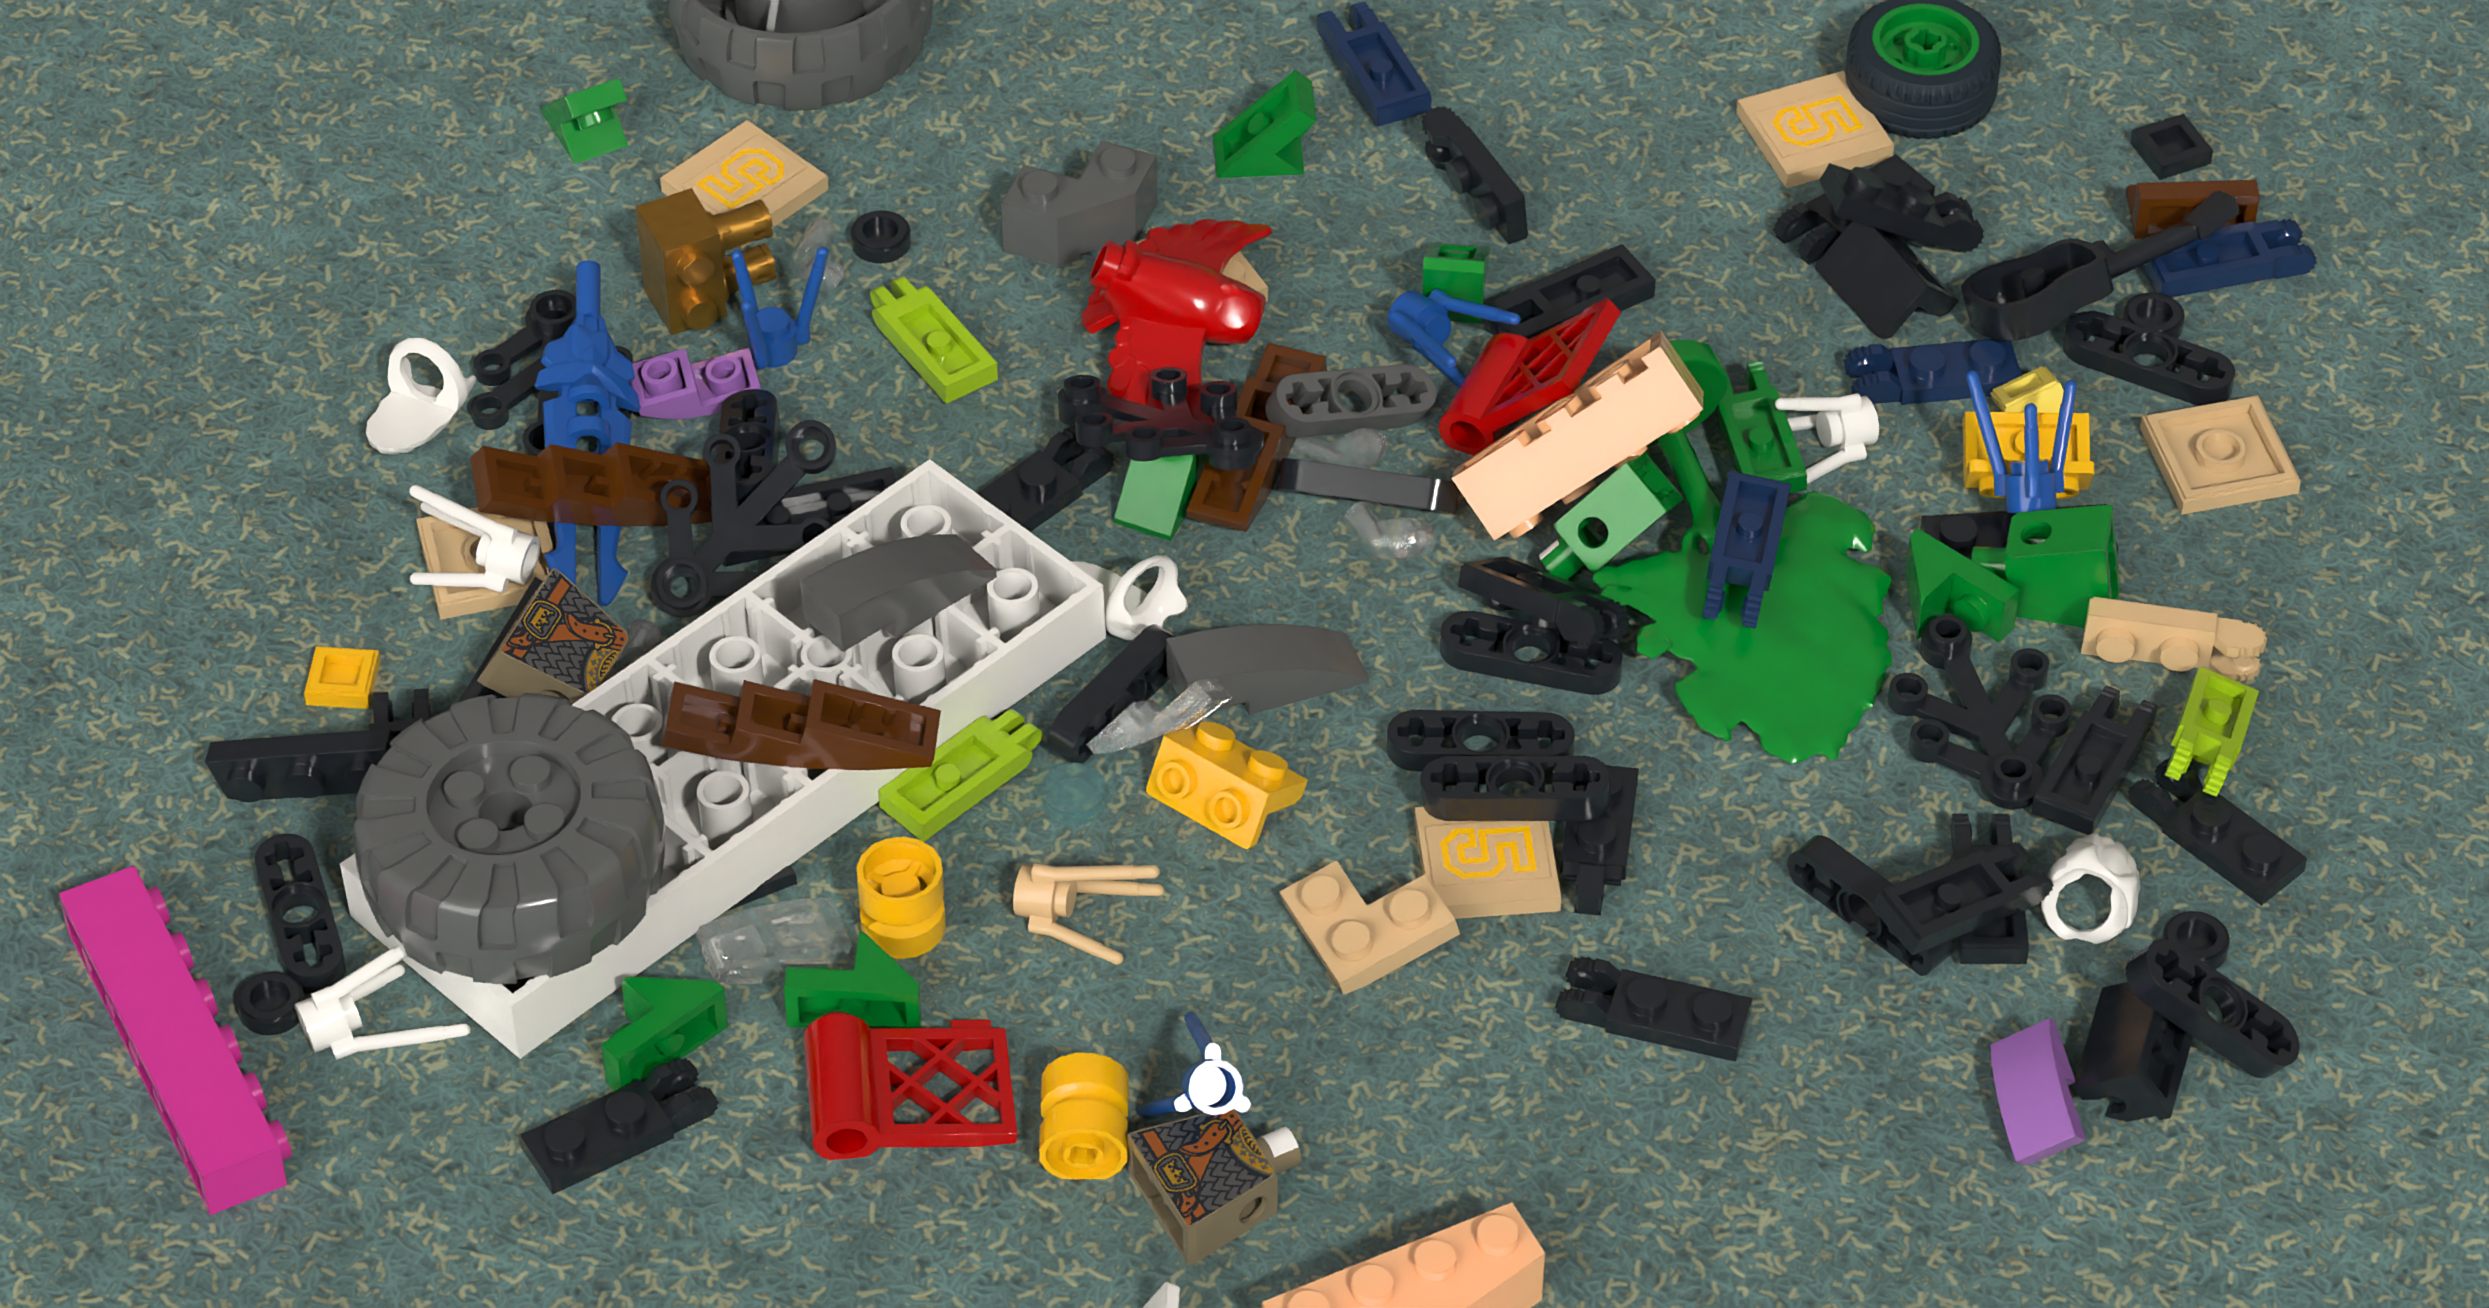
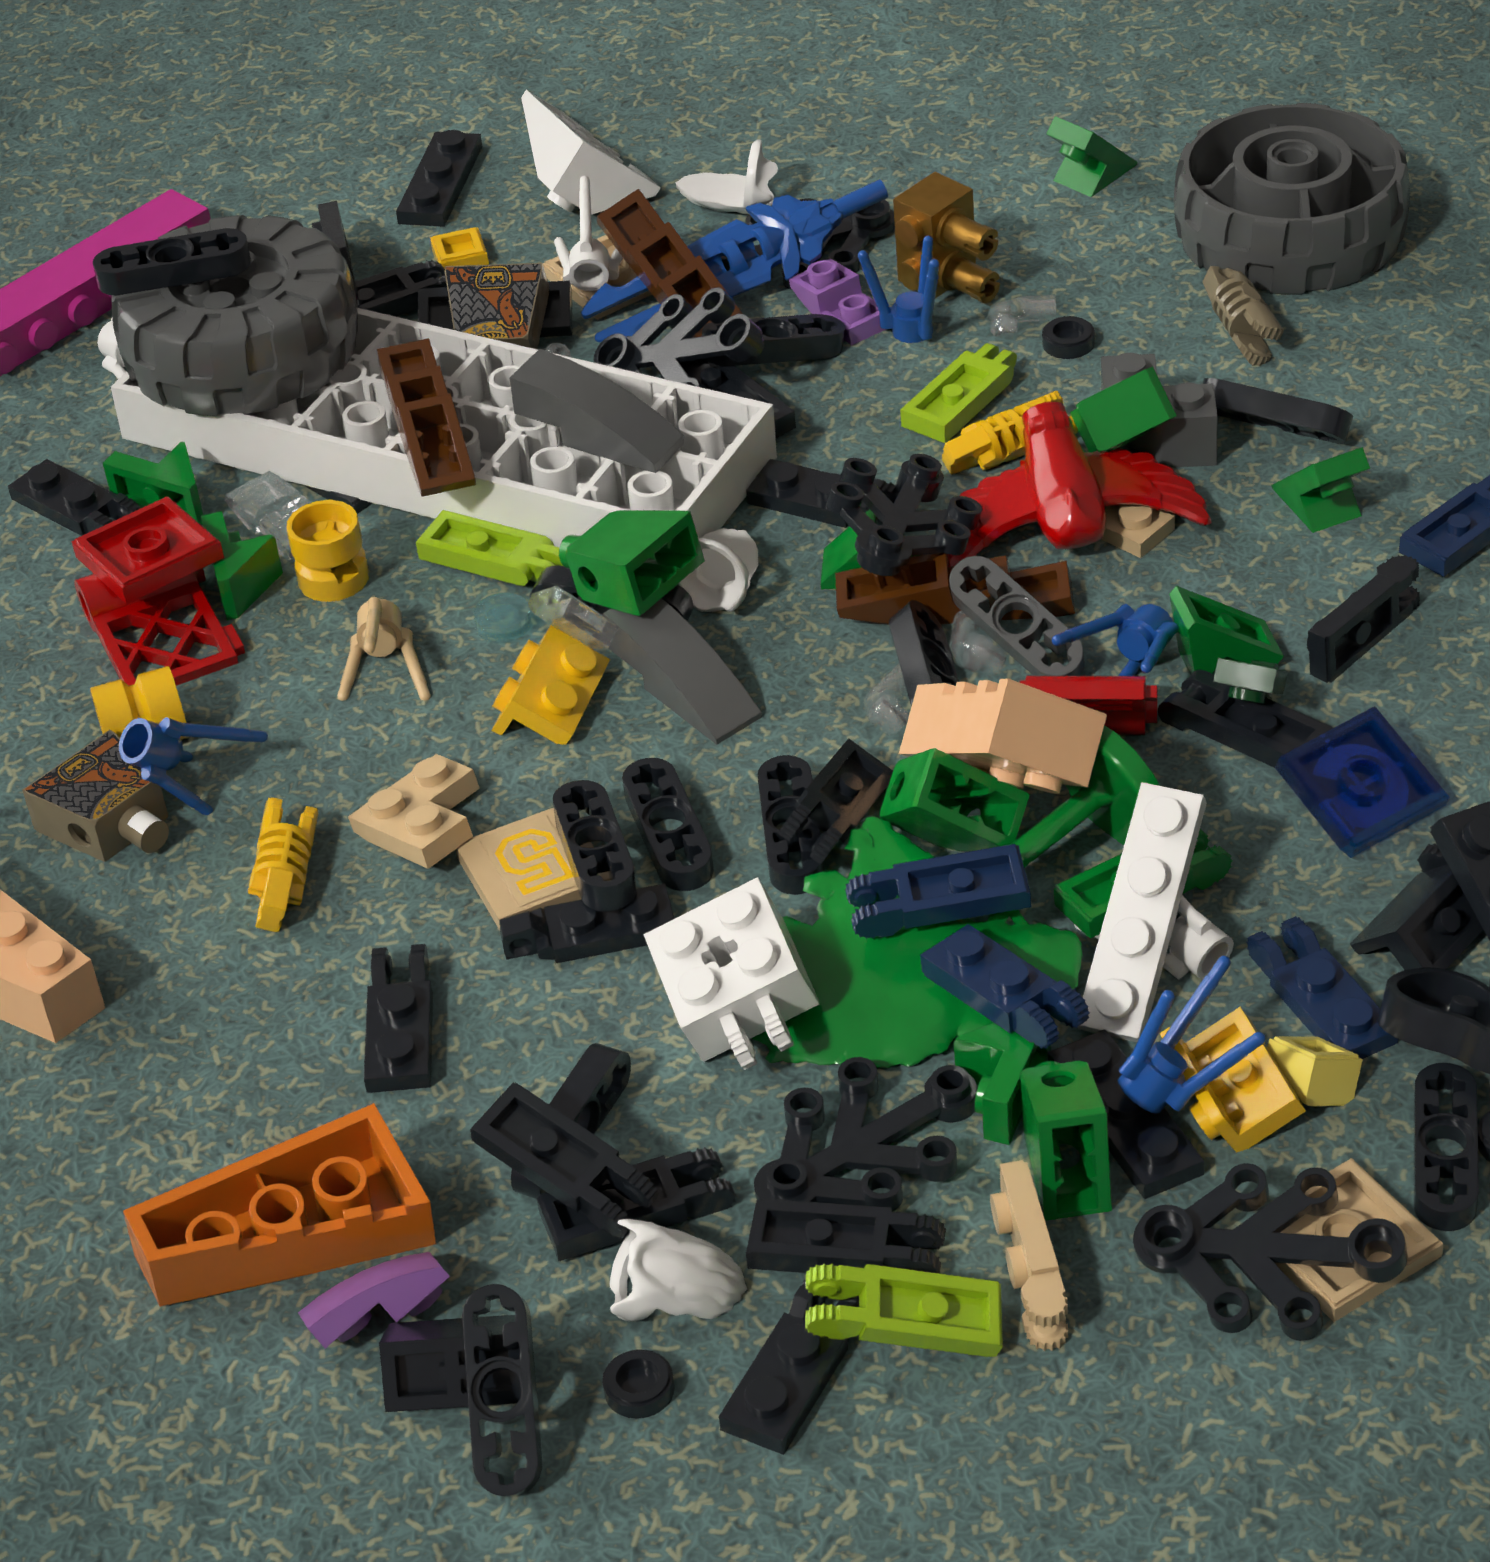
camera: 75 degrees right, 5 degrees down
(171, 660) = (439, 178): none -> black plate
(269, 522) = (568, 151): none -> white wedge
(470, 856) = (151, 264): none -> black beam
(746, 168) = (1080, 257): tan tile -> none
(831, 1040) = (147, 549): none -> red tile
(943, 96) = (1242, 312): none -> dark tan hinge
(1032, 325) = (993, 439): none -> yellow hinge
(1110, 207) = (1123, 412): none -> green slope
(1129, 125) = (1281, 410): none -> black beam
(1139, 631) = (632, 558): none -> green torso
(1379, 1046) = (281, 863): none -> yellow hinge
(1551, 264) = (1250, 680): none -> plate
(1699, 252) = (1361, 782): none -> clear blue tile
(1792, 705) = (732, 973): none -> white hinge
(1833, 428) = (1142, 910): none -> white plate
(1886, 543) = (1003, 986): none -> dark blue hinge
(1911, 1124) = (284, 1213): none -> orange wedge
(2225, 499) = (1259, 1244): none -> black plant

